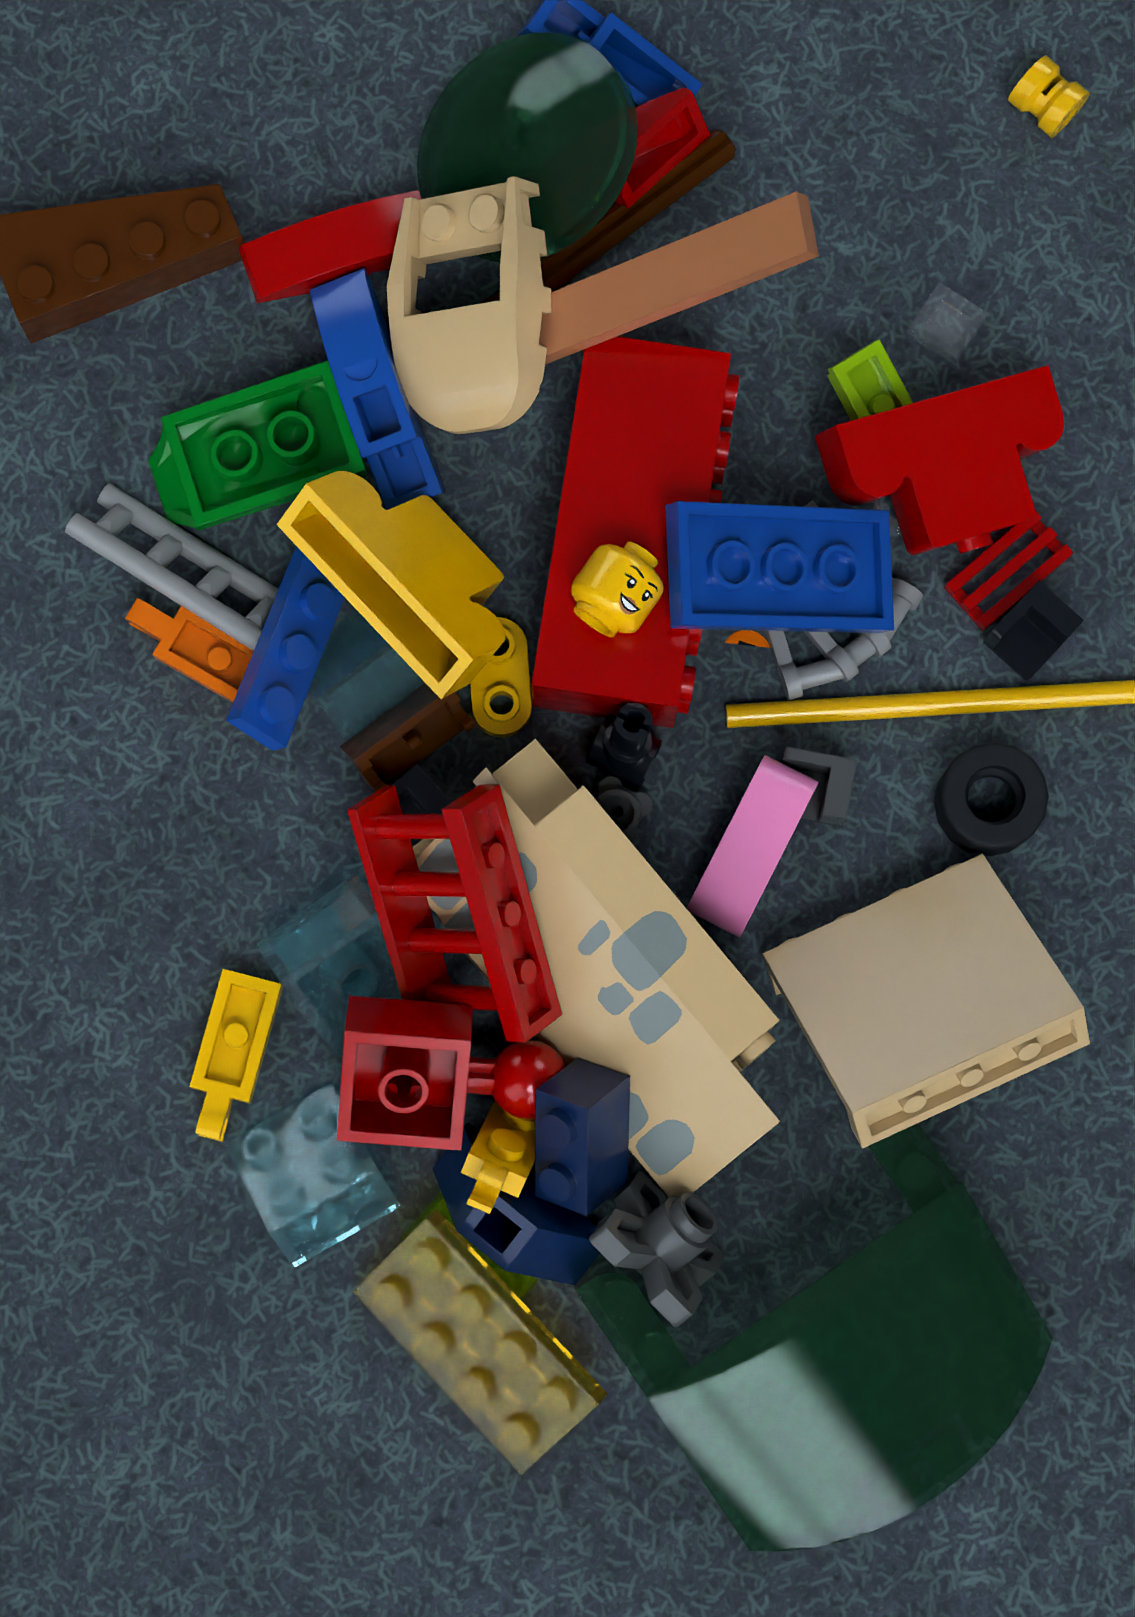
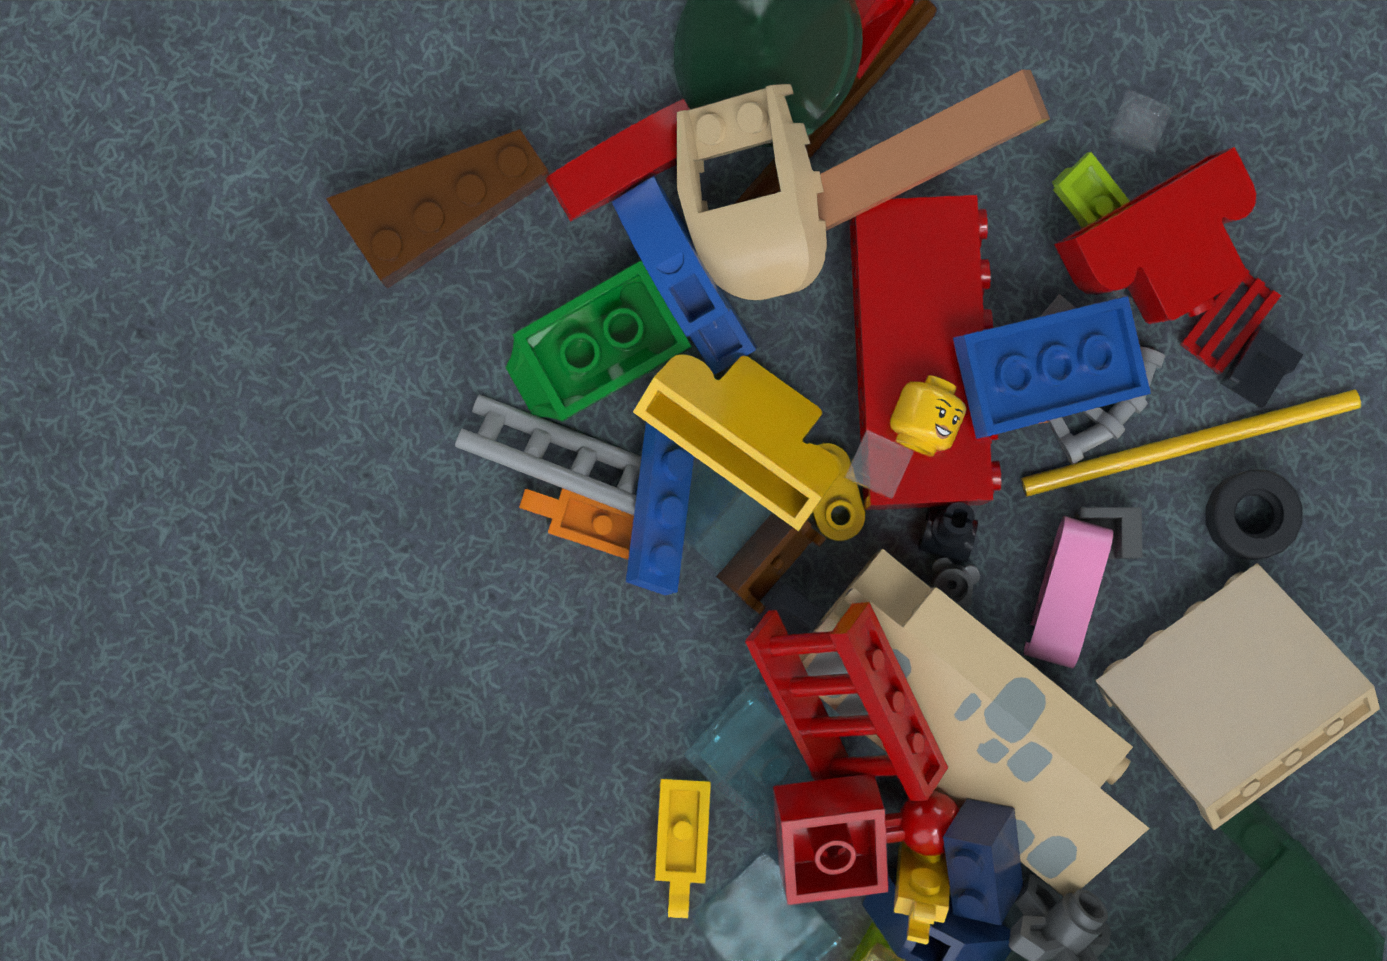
camera: 10 degrees left, 5 degrees up
(550, 637) = (879, 464): none -> clear tile

